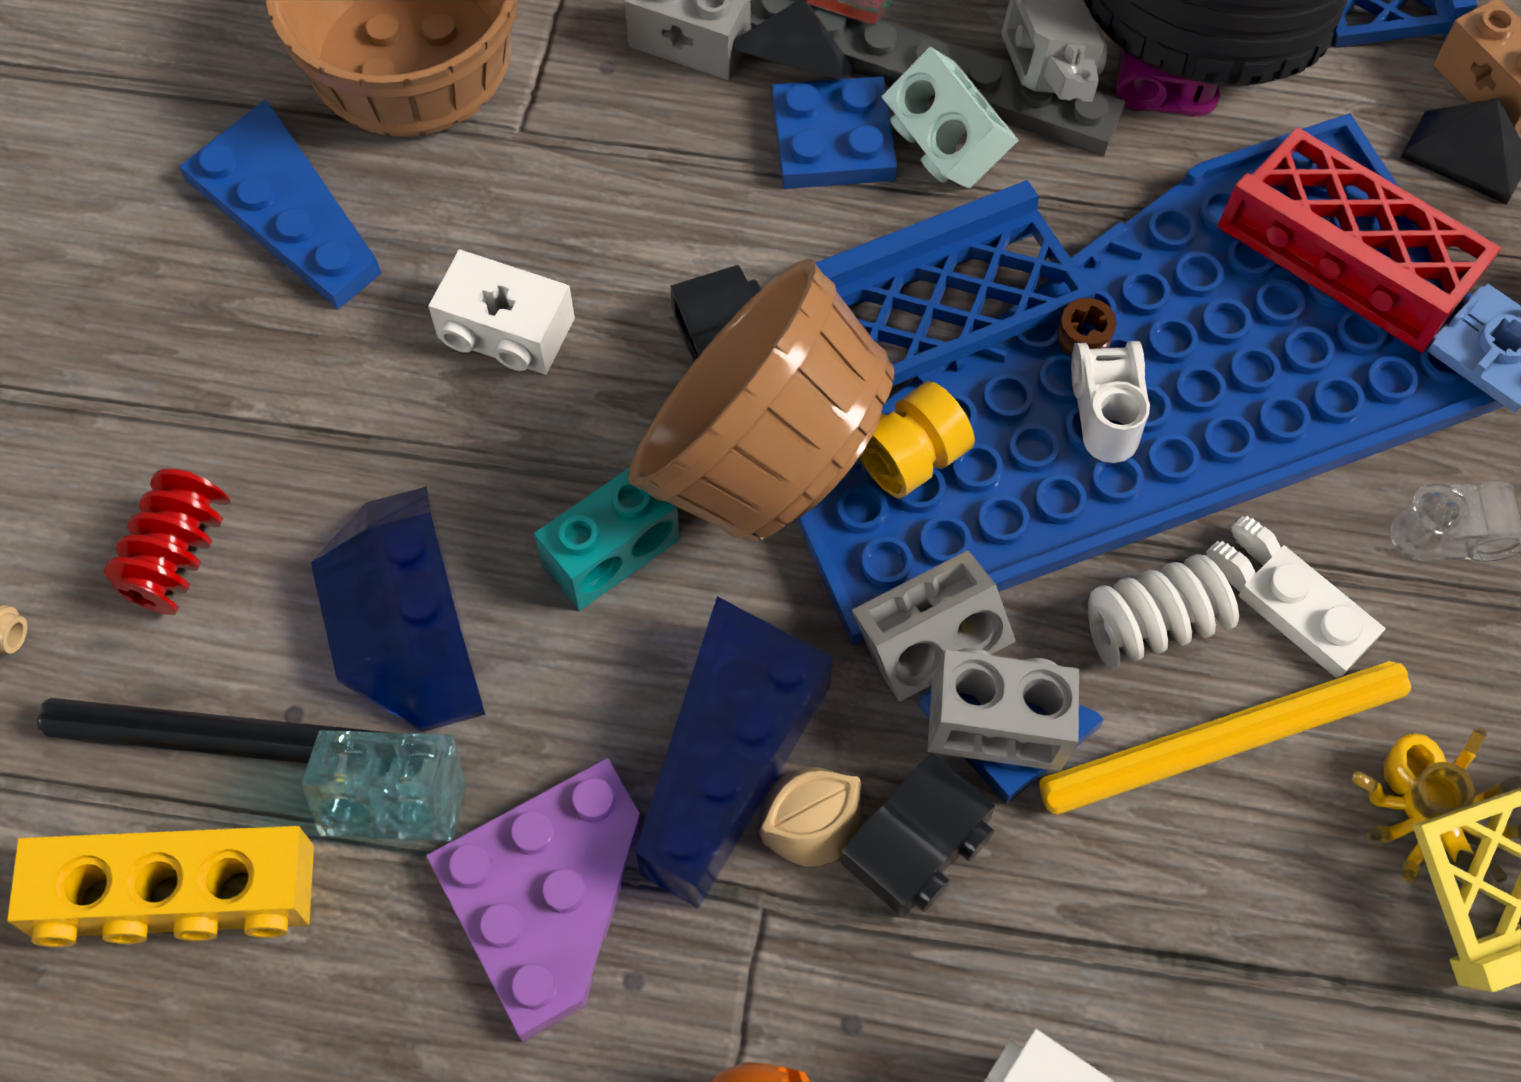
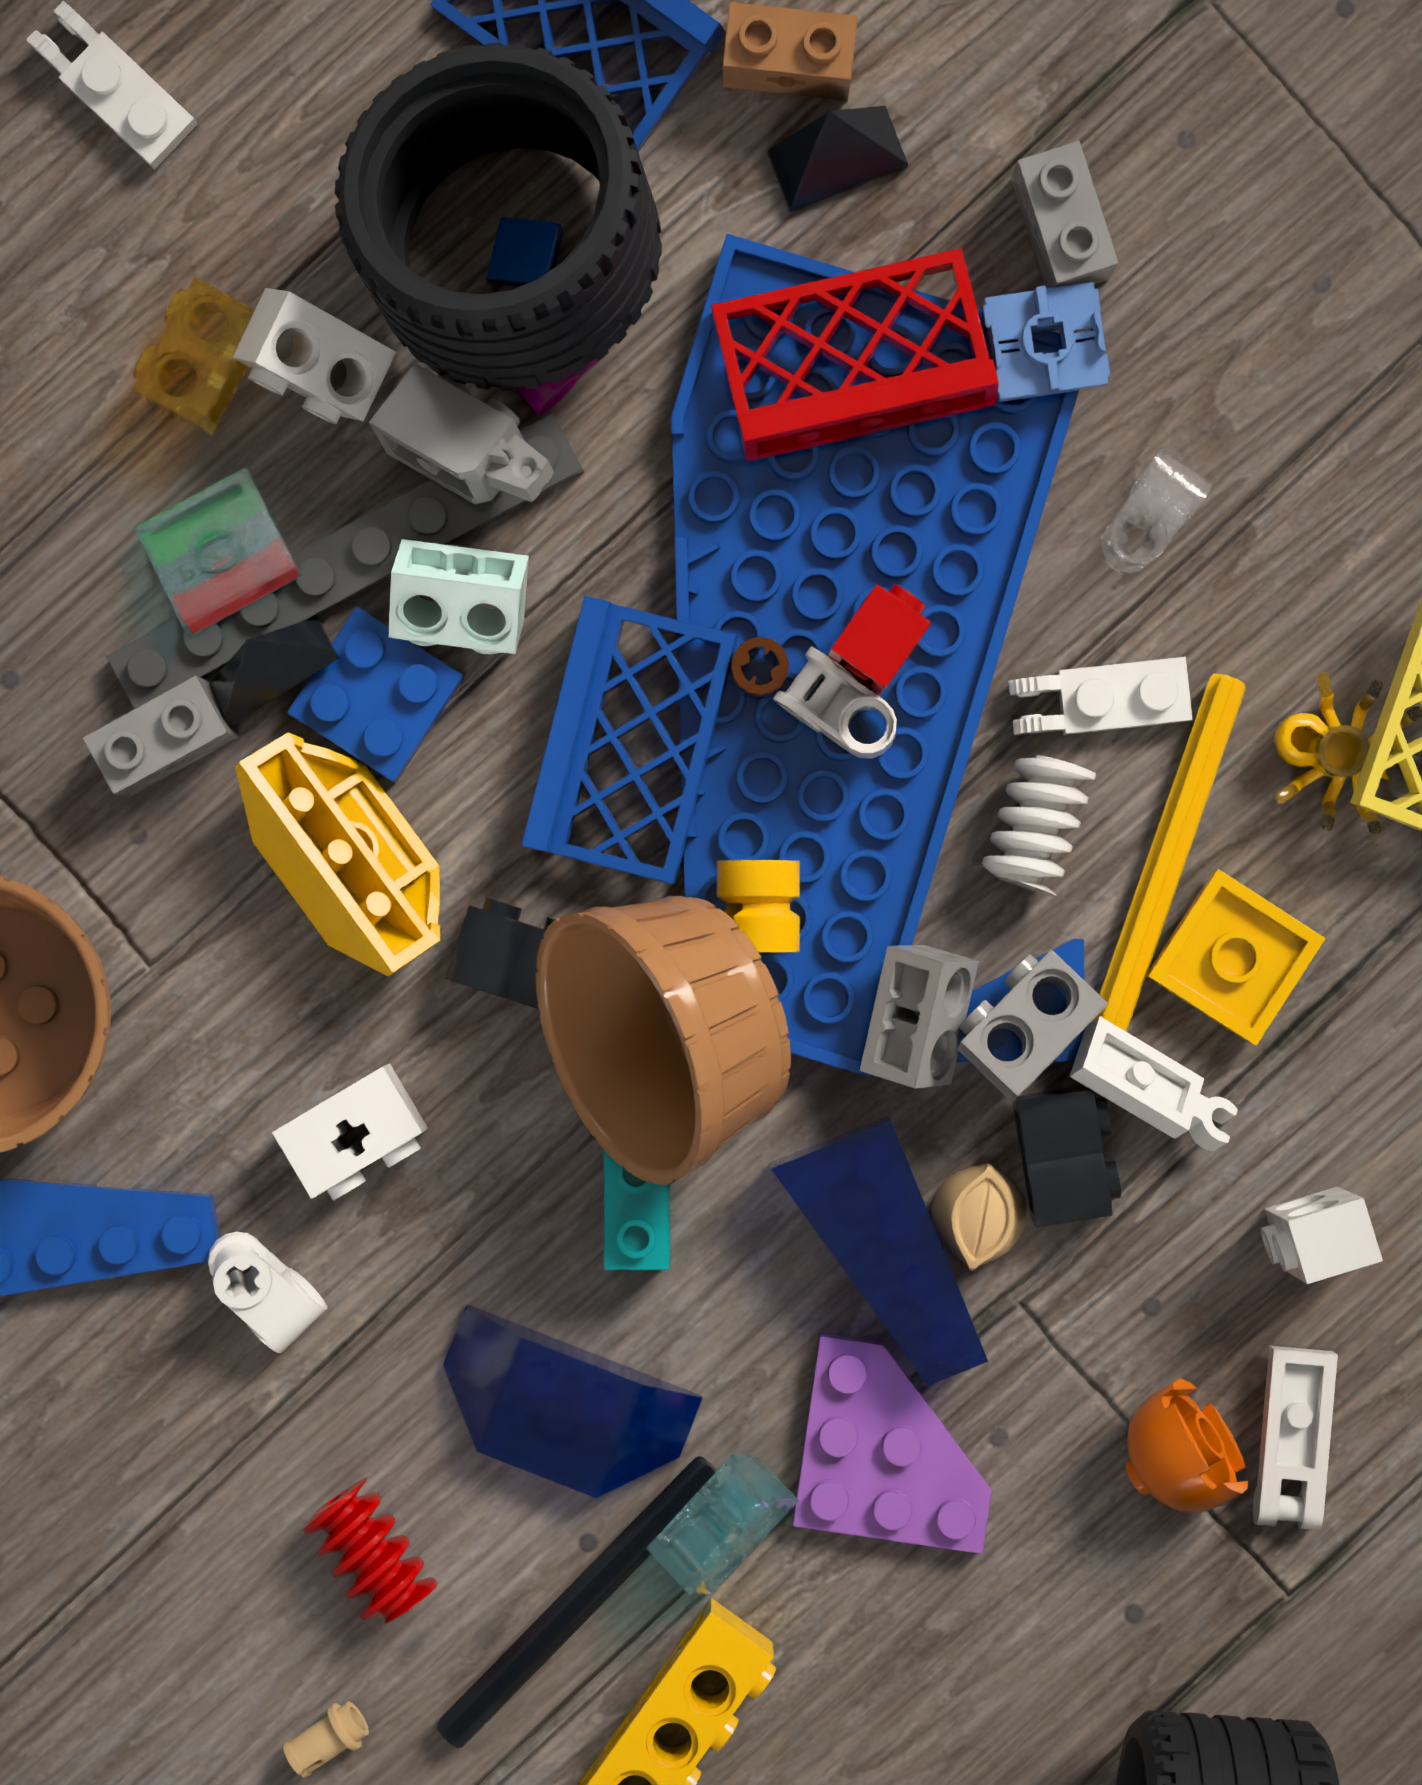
camera: 55 degrees left, 25 degrees up
(328, 343) = (269, 1297): none -> white piece
(709, 162) = (342, 851): none -> yellow wedge
(1038, 860) = (1149, 1085): none -> white plate
(1192, 365) = (881, 637): none -> red brick
(1200, 851) = (1235, 957): none -> yellow plate

